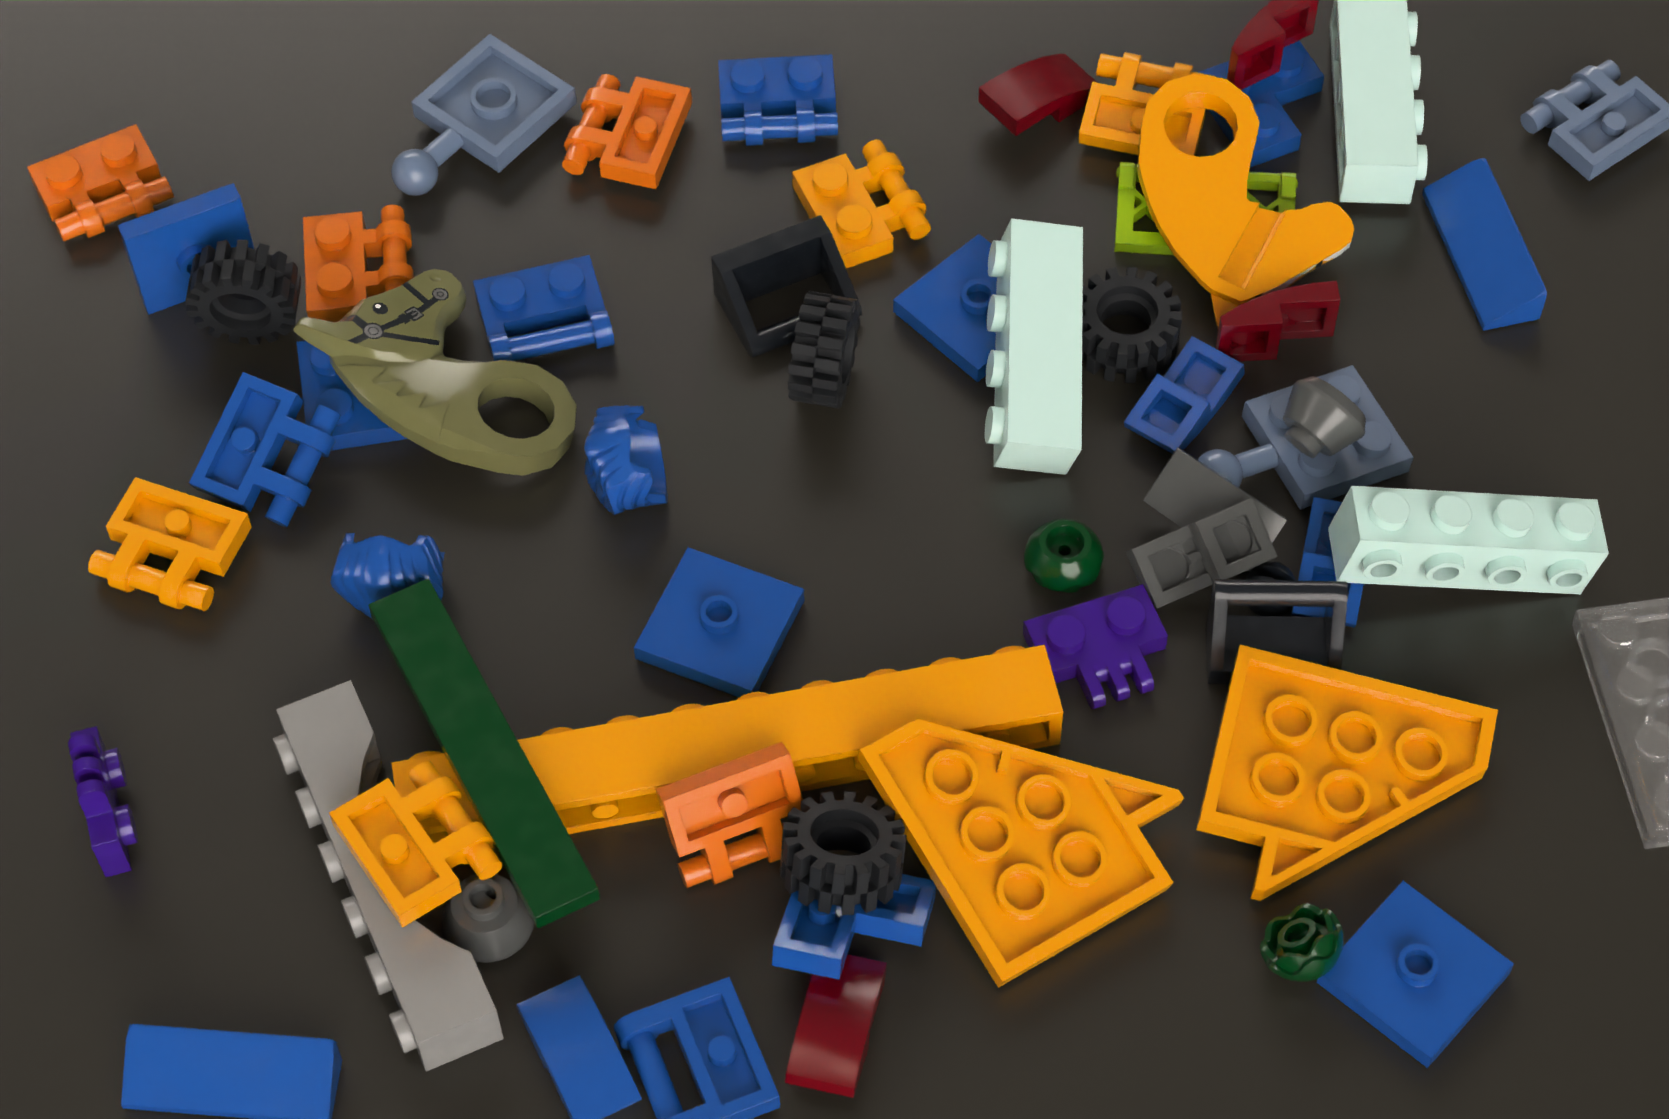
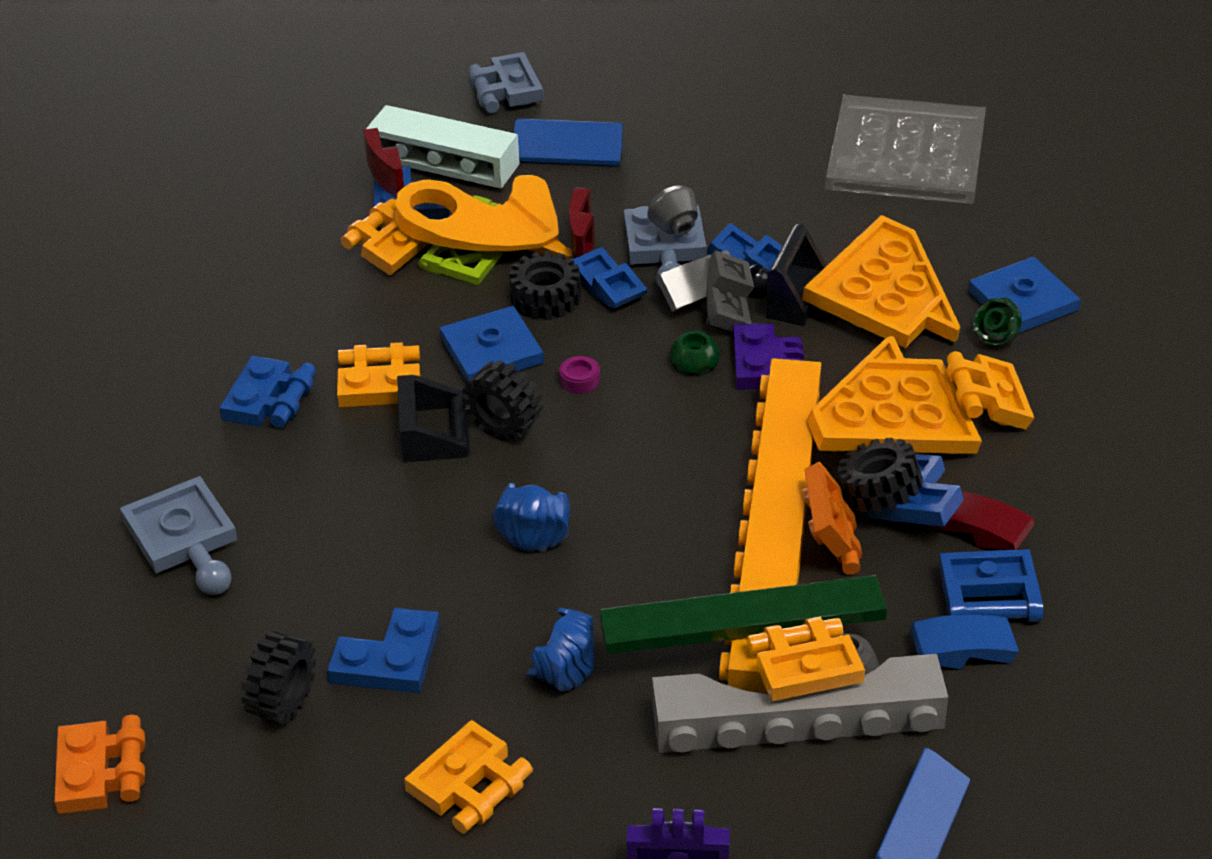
camera: 70 degrees left, 15 degrees down
(168, 239) = (222, 696): blue plate -> none
(249, 441) = (411, 707): blue plate -> none
(337, 260) = (243, 632): orange plate -> none
(396, 367) = (422, 600): olive animal -> none
(540, 300) = (362, 541): blue plate -> none
(642, 137) = (256, 455): orange plate -> none
(719, 623) = (671, 511): blue plate -> none
(960, 430) = (579, 374): none -> magenta tile
(1035, 90) = (346, 278): dark red slope -> none
(1037, 347) = (554, 310): light aqua brick -> none
(1134, 984) = (991, 386): none -> light orange plate
(1467, 540) = (775, 190): light aqua brick -> none

